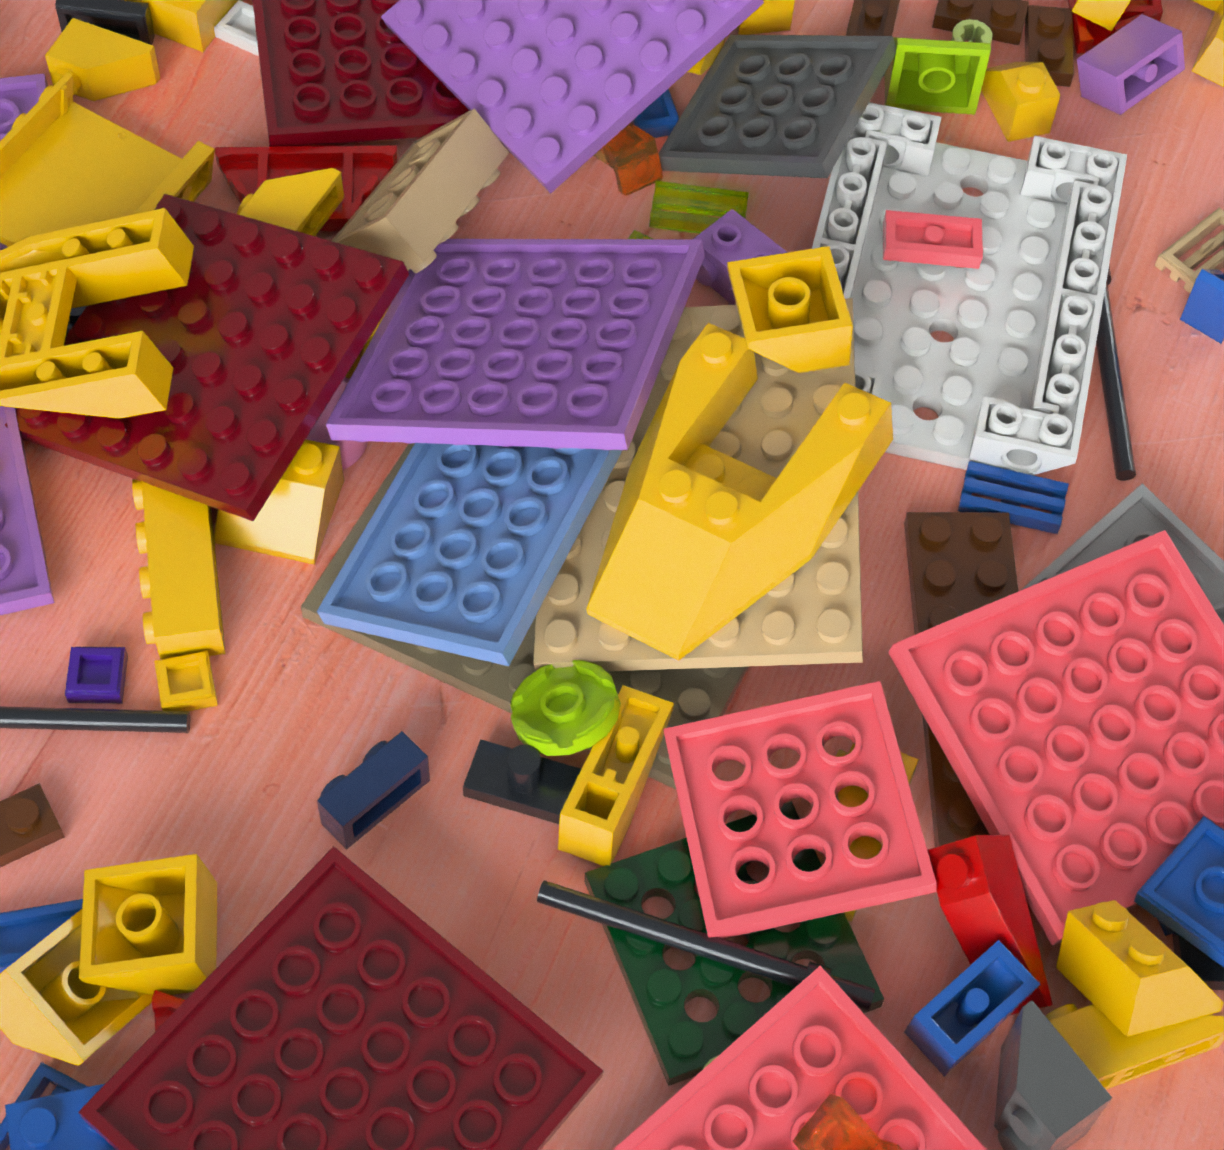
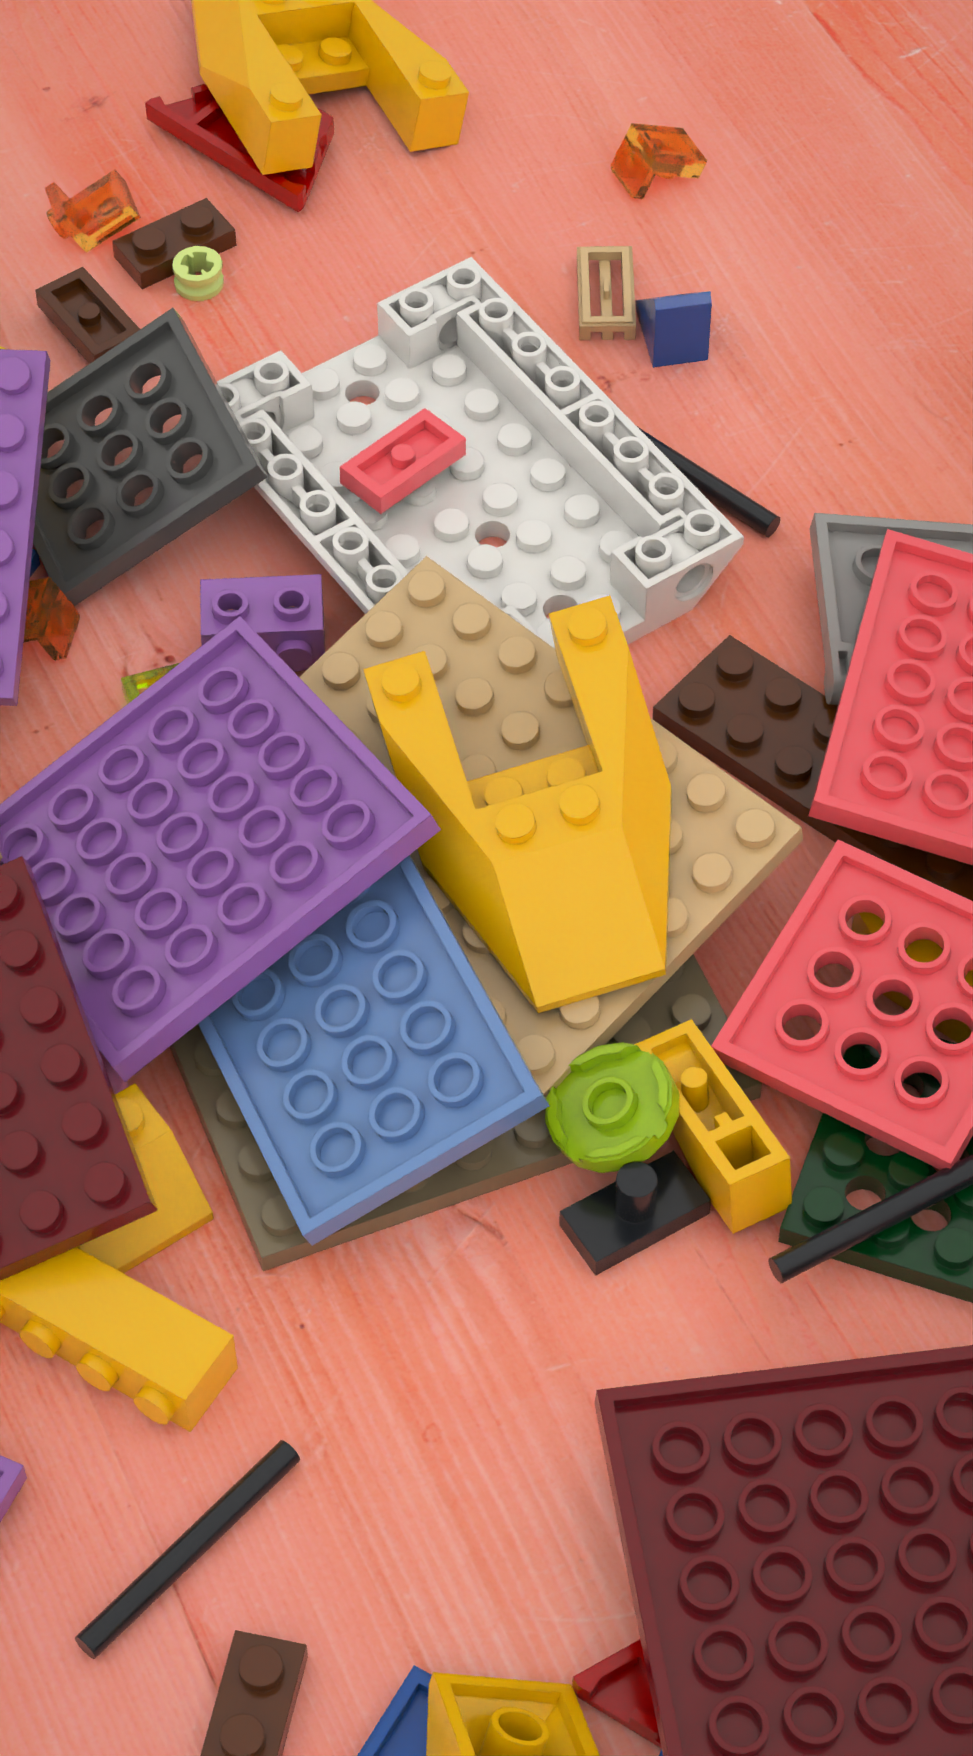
camera: 45 degrees left, 5 degrees down
(96, 675) = (152, 1497): dark purple tile -> none
(149, 925) = (509, 1625): yellow slope -> none
(186, 682) = (241, 1422): yellow tile -> none
(373, 790) = (531, 1359): dark blue piece -> none
(696, 201) = (144, 608): clear neon green tile -> none
(793, 309) = (422, 590): yellow slope -> none
(936, 75) = (228, 310): lime slope -> none
(1013, 490) = (706, 616): blue tile -> none
(1021, 98) = (303, 284): yellow slope -> none
(1050, 41) = (269, 224): reddish brown plate -> none
(1131, 64) = (366, 181): medium lavender brick -> none

